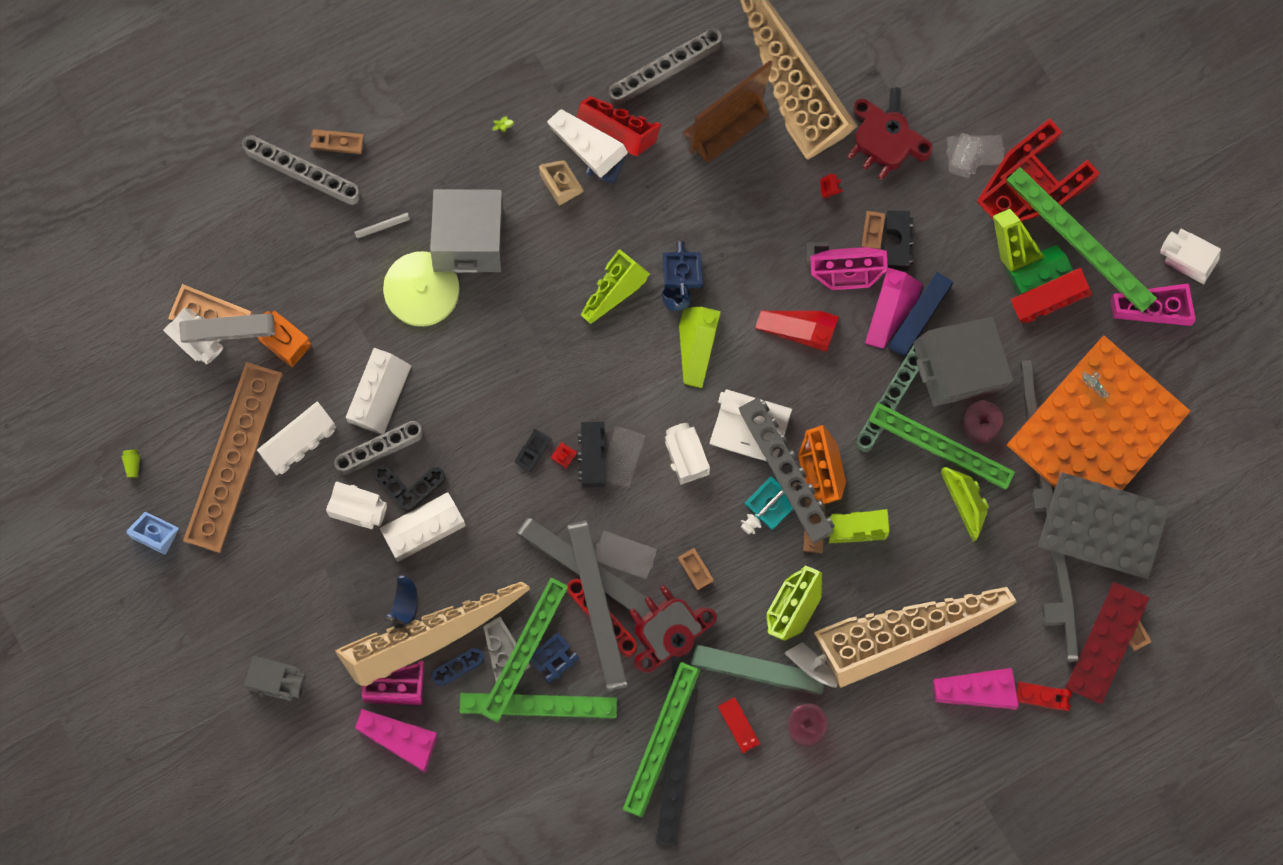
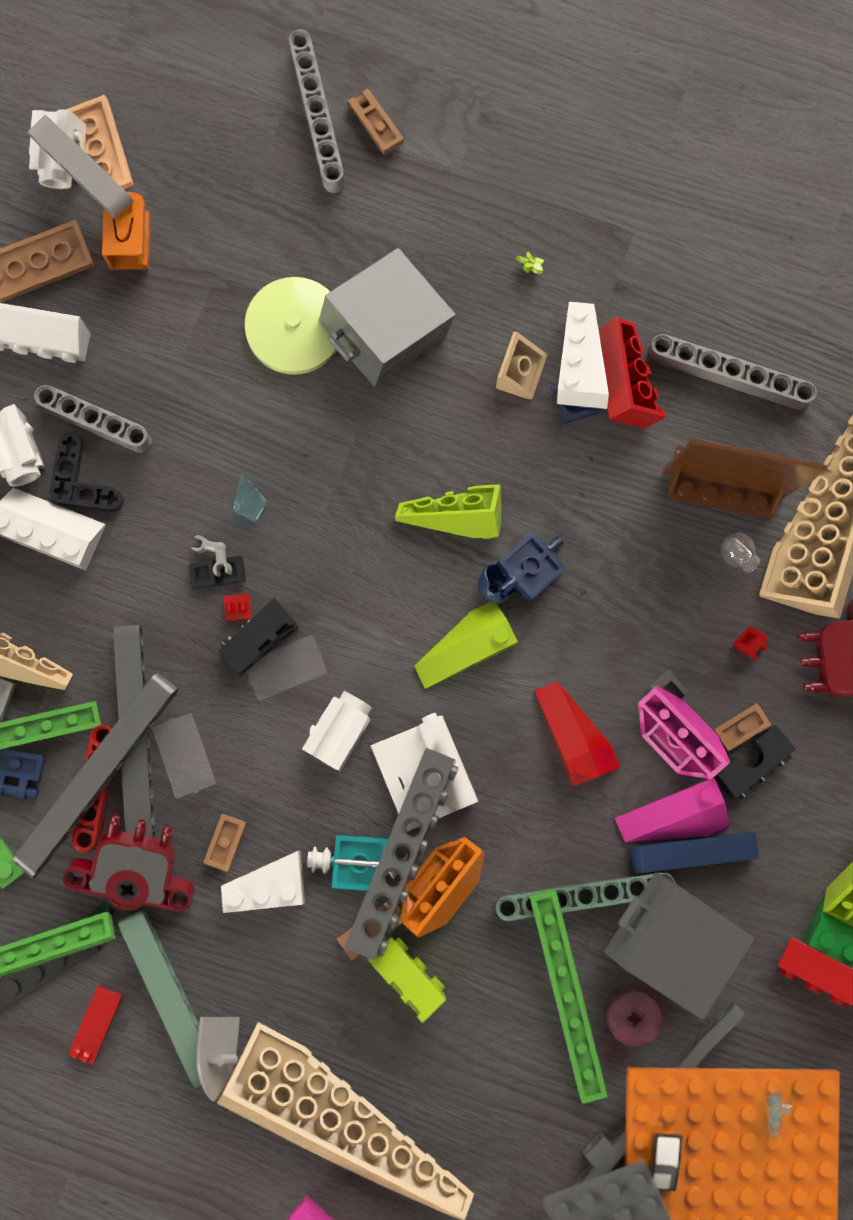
camera: 45 degrees right, 5 degrees up
(378, 391) = (150, 370): white slope -> none
(382, 225) = (327, 234): light grey bar -> none
(505, 398) = (248, 500): none -> clear light blue piece
(520, 436) = (219, 549): none -> light grey arm
(742, 563) = (267, 887): none -> white wedge
(773, 149) = (740, 551): none -> clear piece
(795, 603) = (267, 978): lime wedge -> none
(817, 719) = (148, 1116): clear pink brick -> none
(967, 500) = (533, 1072): lime wedge -> none
(1071, 461) = (665, 1160): none -> slope

